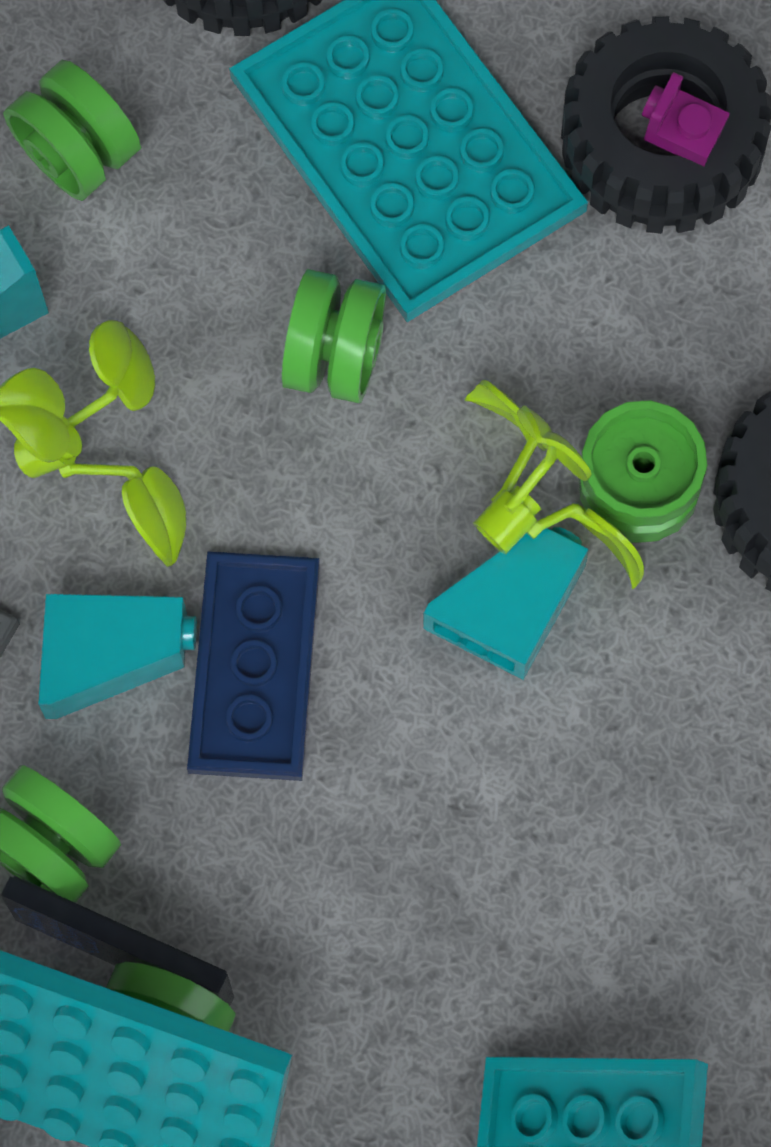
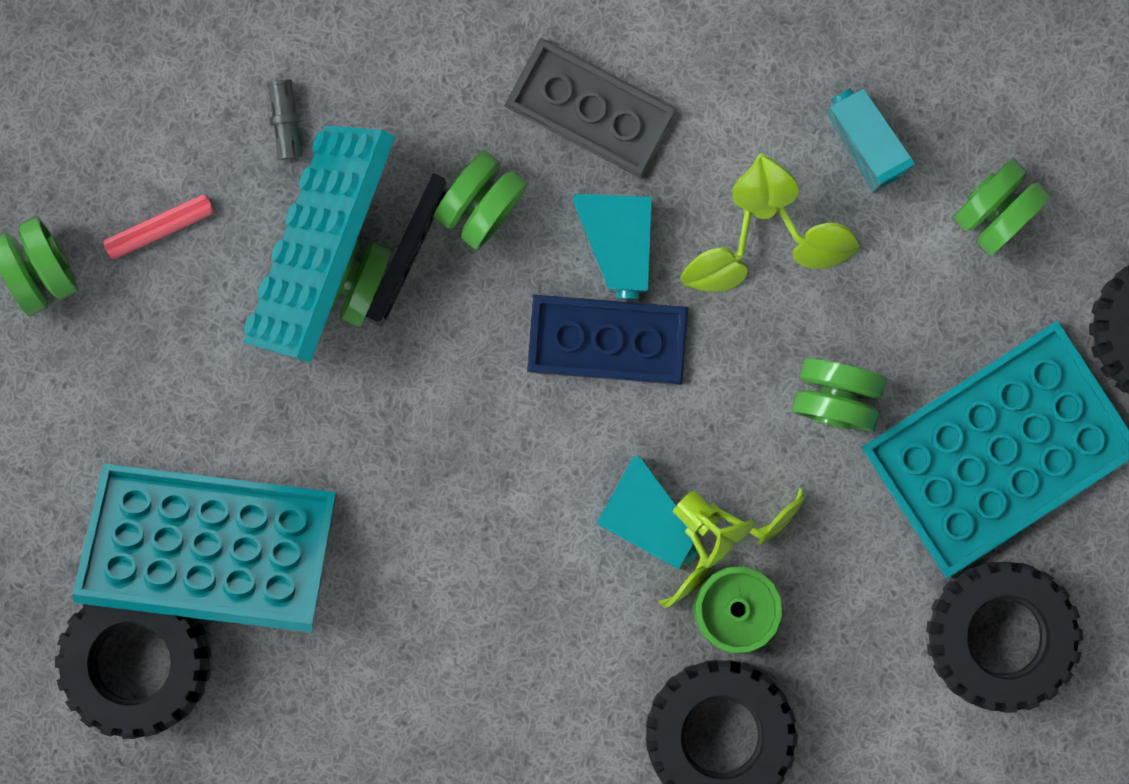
camera: 85 degrees right, 15 degrees up
(683, 122) = (989, 646): magenta bracket -> none

